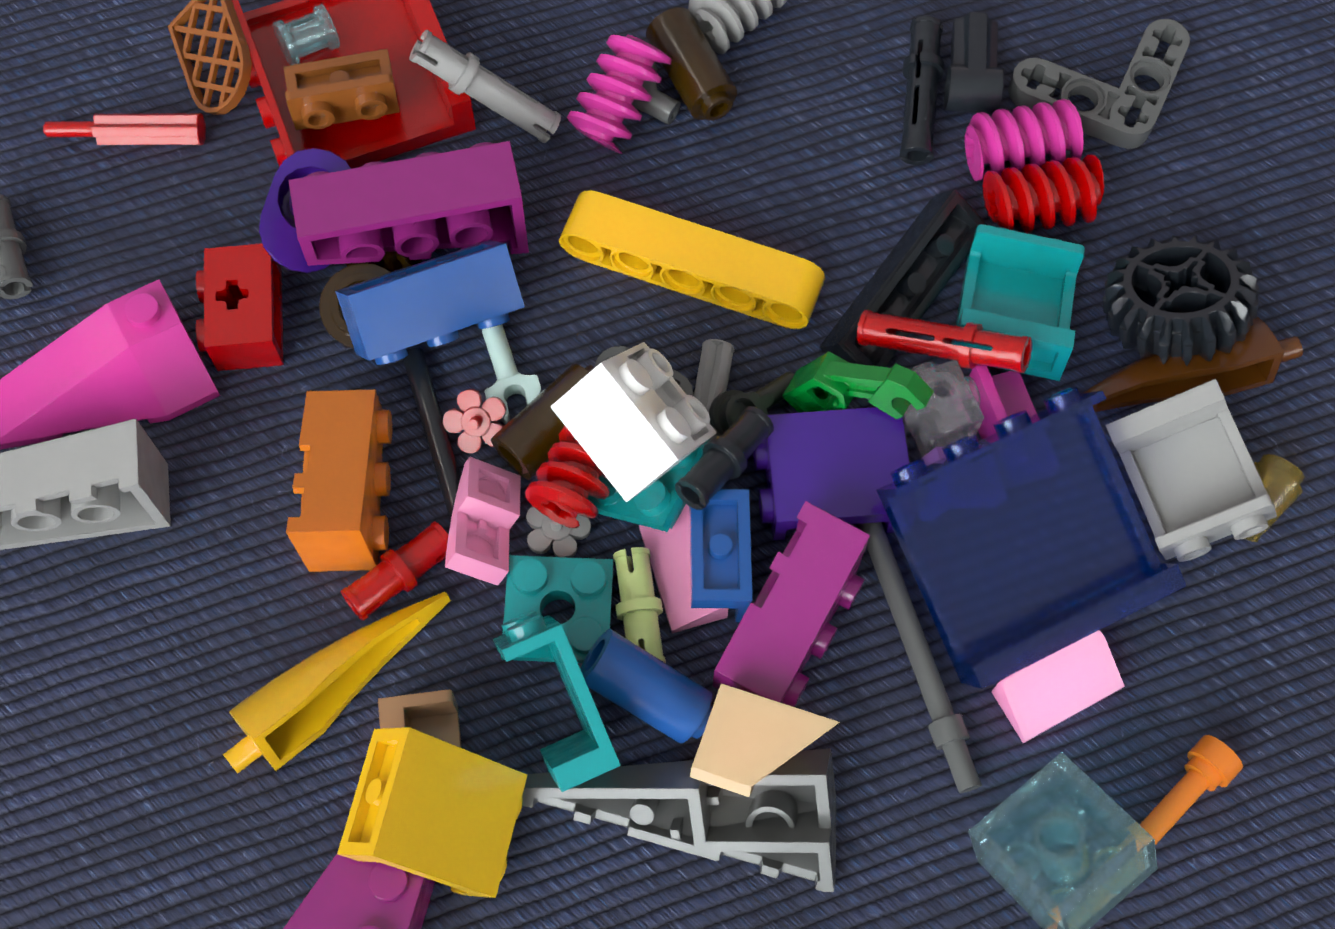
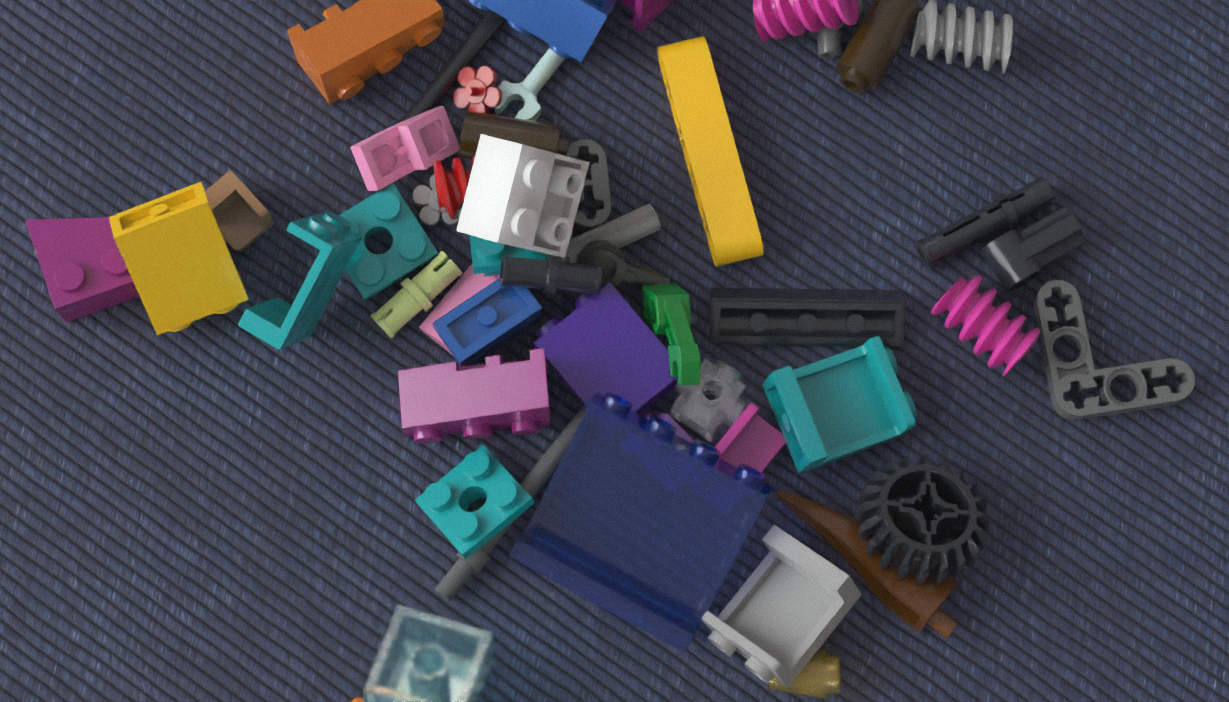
camera: 55 degrees right, 10 degrees up
(309, 696) = (210, 125): yellow piece -> none
(397, 571) = (331, 118): red pin -> none
(647, 687) = (358, 336): blue brick -> none
(751, 739) = (362, 422): tan slope -> none
(780, 827) = (332, 461): dark grey wedge -> none
(867, 676) = (474, 478): none -> teal piece
(1007, 351) = (757, 384): red pin -> none
(1044, 193) = (947, 370): red piece -> none
(1058, 686) = (557, 612): bright pink slope -> none

